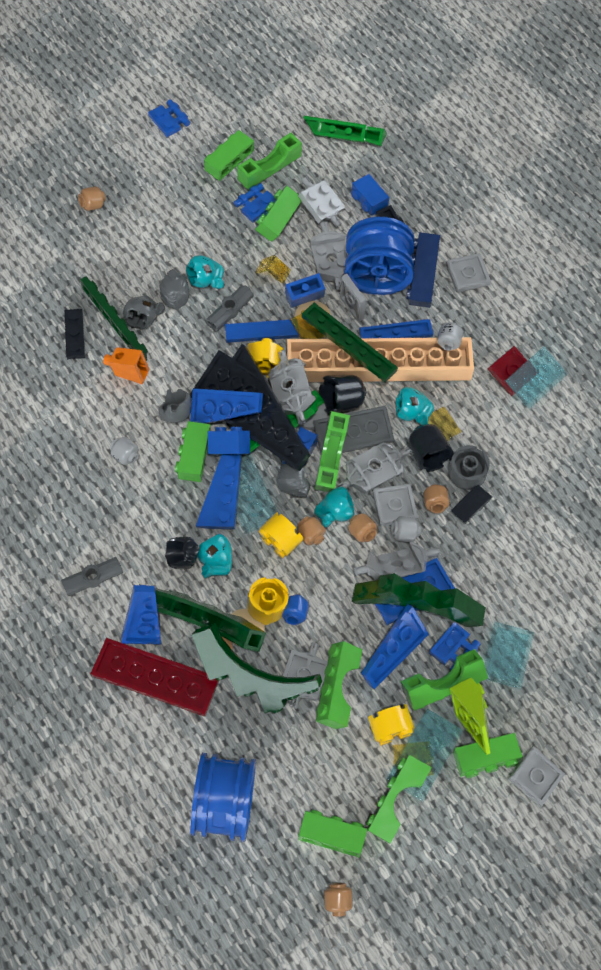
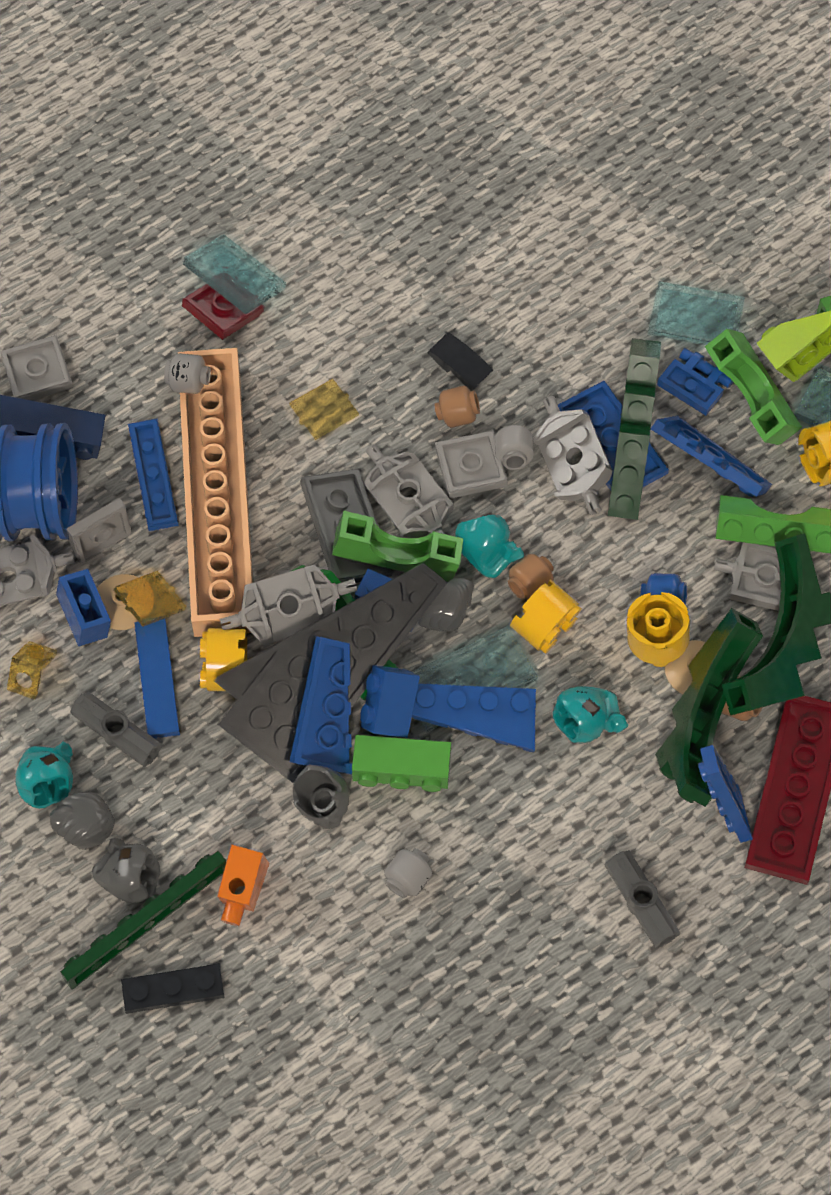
camera: 90 degrees left, 0 degrees up
(181, 552) = (591, 760): black hair -> none
(342, 392) = (286, 537): black cylinder -> none
(349, 342) = (199, 522): dark green plate -> none
(362, 528) = (517, 505): medium nougat head -> none
(413, 405) = (298, 441): teal piece -> none
(430, 447) = (372, 413): black cylinder -> none
(468, 467) = (404, 360): dark grey brick -> none

